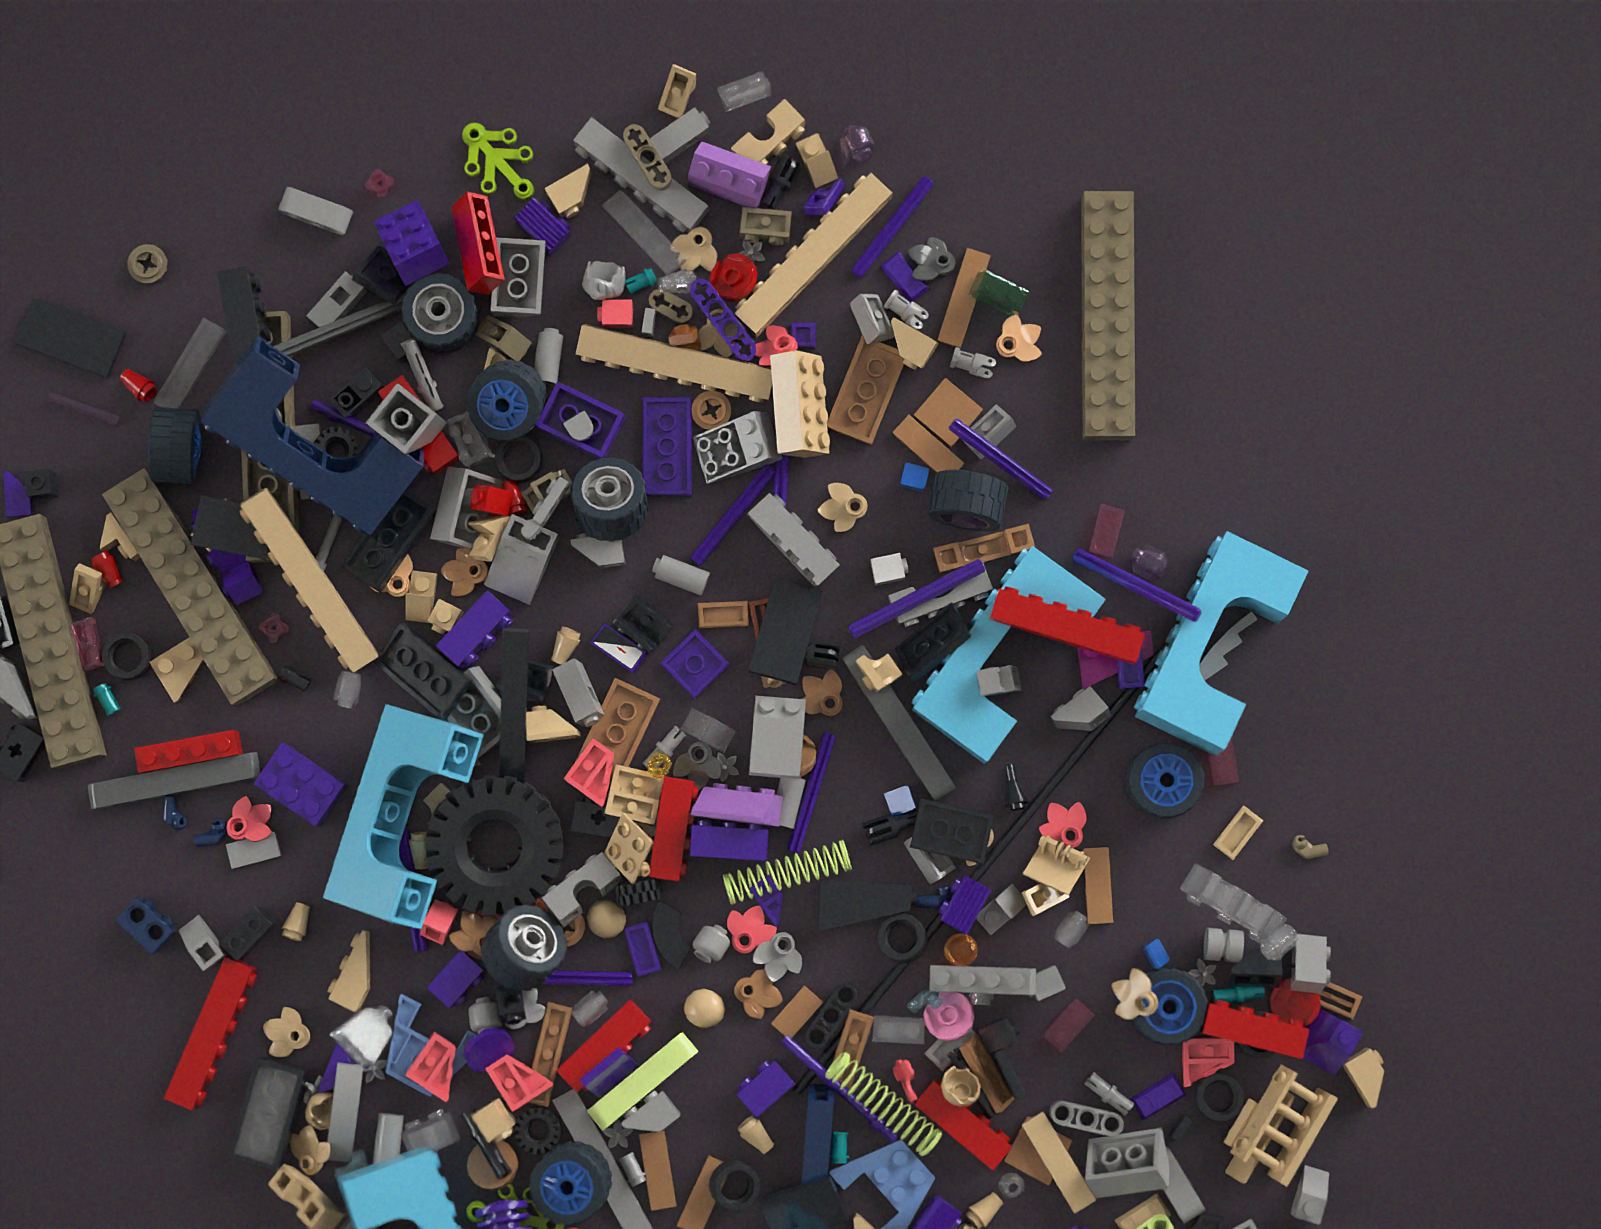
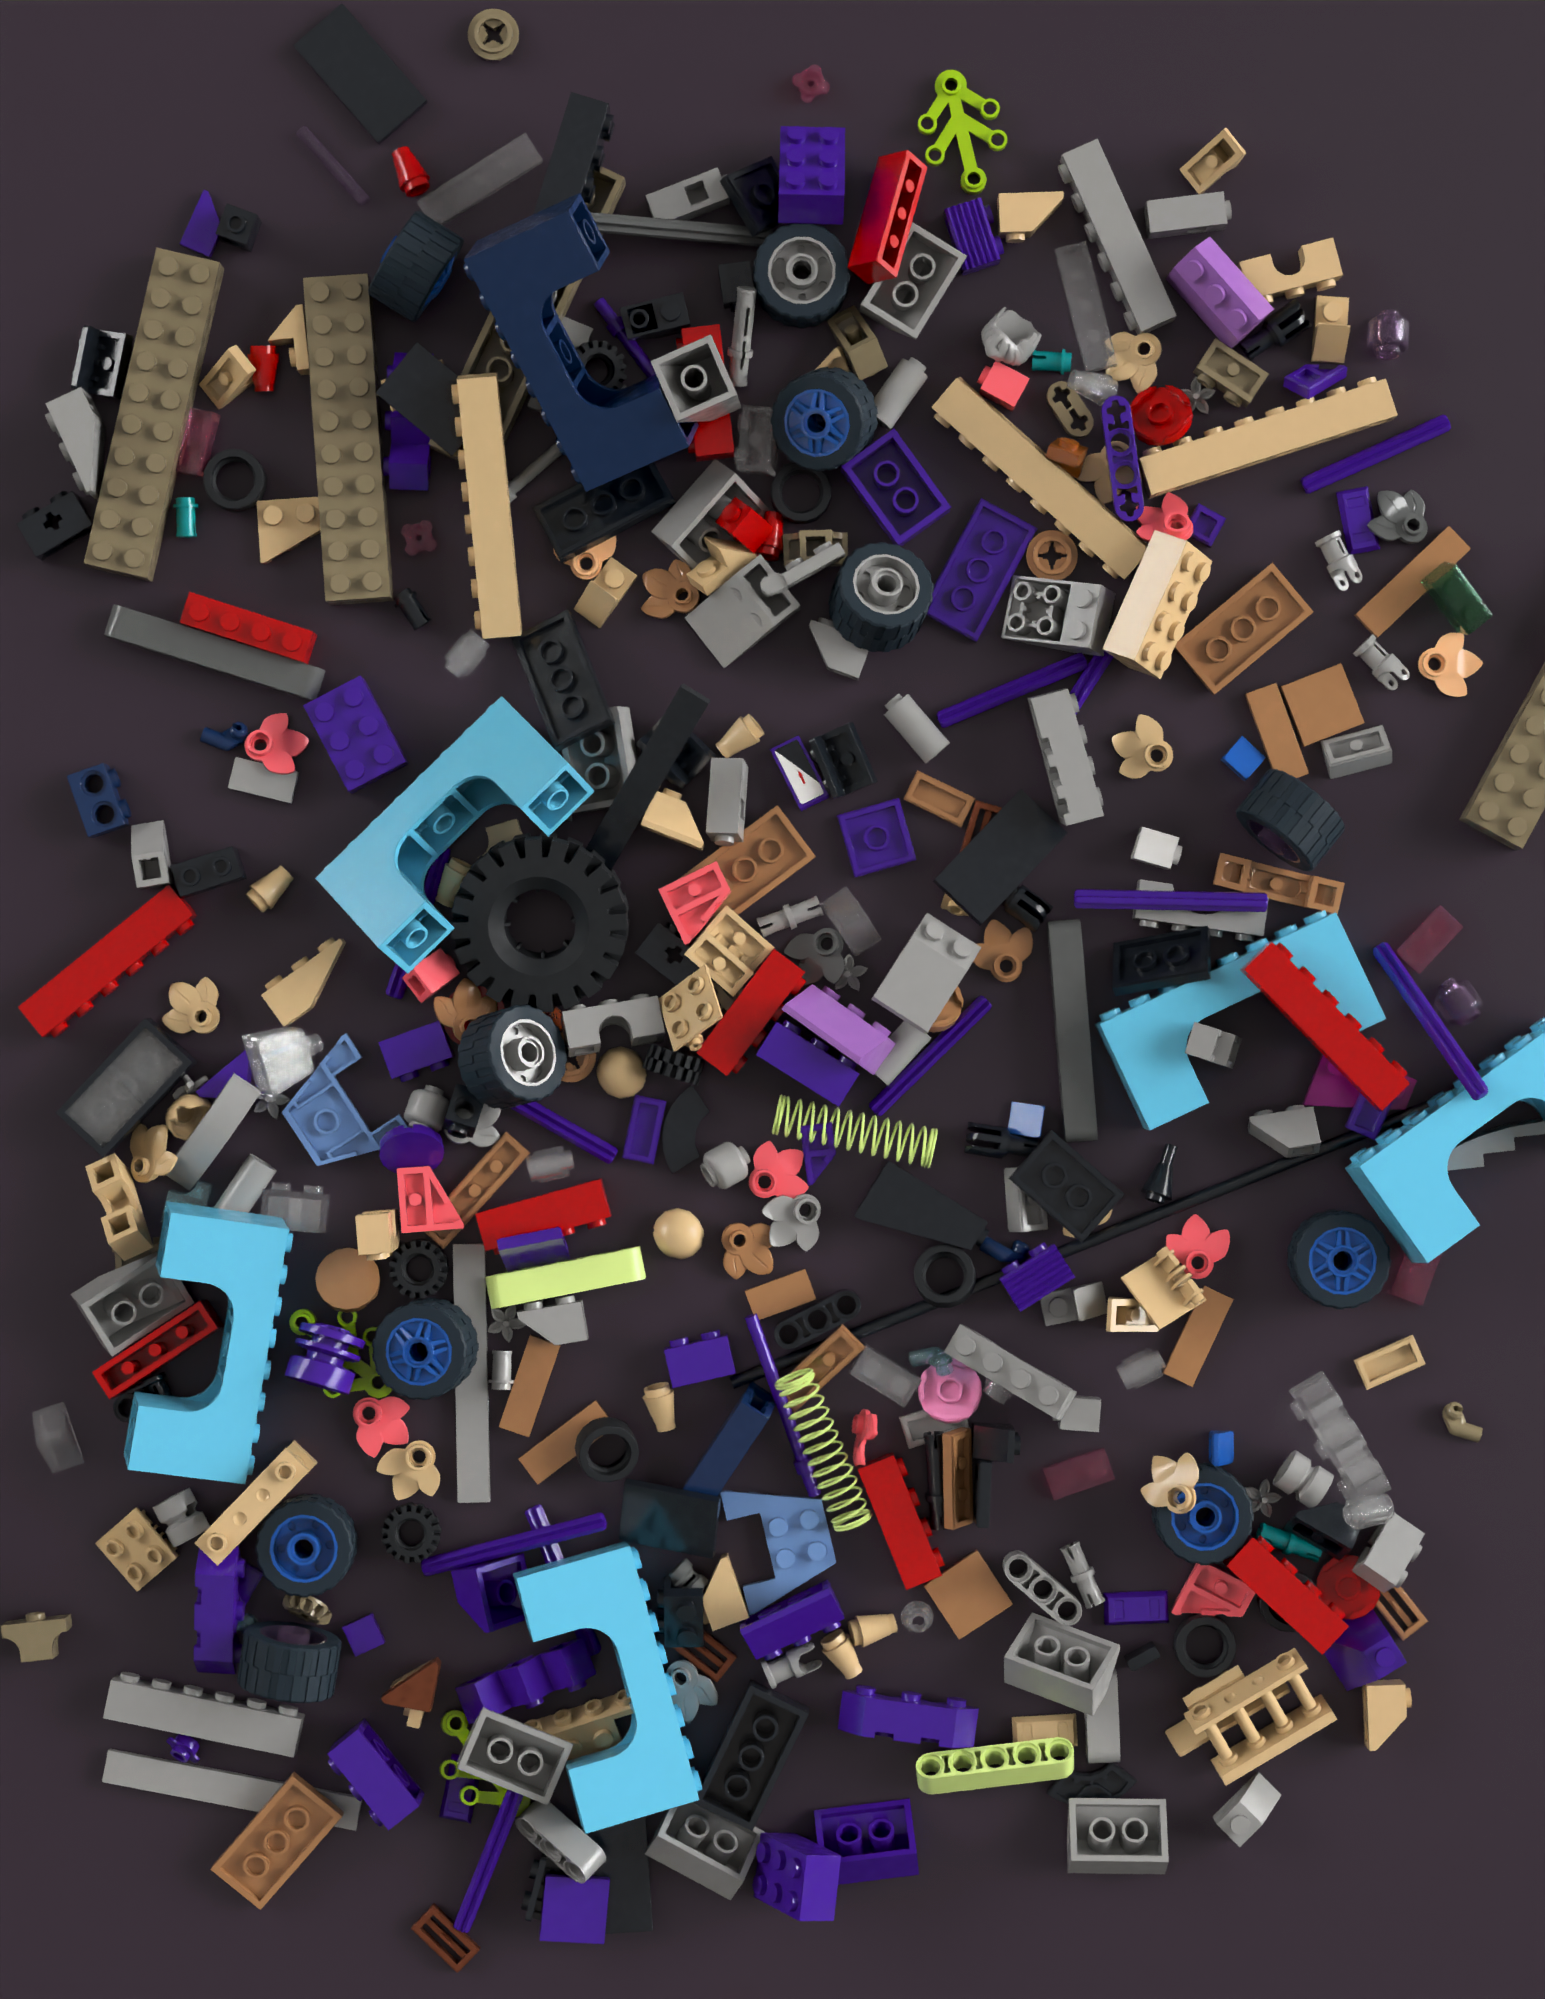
camera: 25 degrees right, 5 degrees up
(171, 815) = (190, 690): dark blue arm -> none
(315, 211) = (719, 76): light grey beam -> none
(434, 1066) = (340, 1135): coral wing -> none
(444, 617) = (620, 632): tan brick -> none
(475, 631) = (648, 666): dark purple brick -> none
(488, 1149) = (352, 1261): black pin -> none
(579, 427) = (891, 495): light grey tile -> none
(643, 137) = (1147, 245): dark tan beam -> none
(649, 322) = (1034, 415): light grey tile -> none
(659, 757) = (777, 923): clear yellow bush -> none
(744, 91) = (1291, 202): clear bracket -> none
(839, 1147) = (746, 1471): teal pin -> none
(872, 318) = (1294, 549): light grey slope -> none
(878, 672) = (1081, 962): tan brick -> none
(912, 344) = (1325, 605): tan slope -> none
(960, 949) = (1003, 1324): clear orange wheel -> none
(960, 1087) = (920, 1478): tan hair -> none
(1000, 459) = (1353, 791): dark purple axle -> none
(1058, 1162) = (984, 1620): tan tile -> none

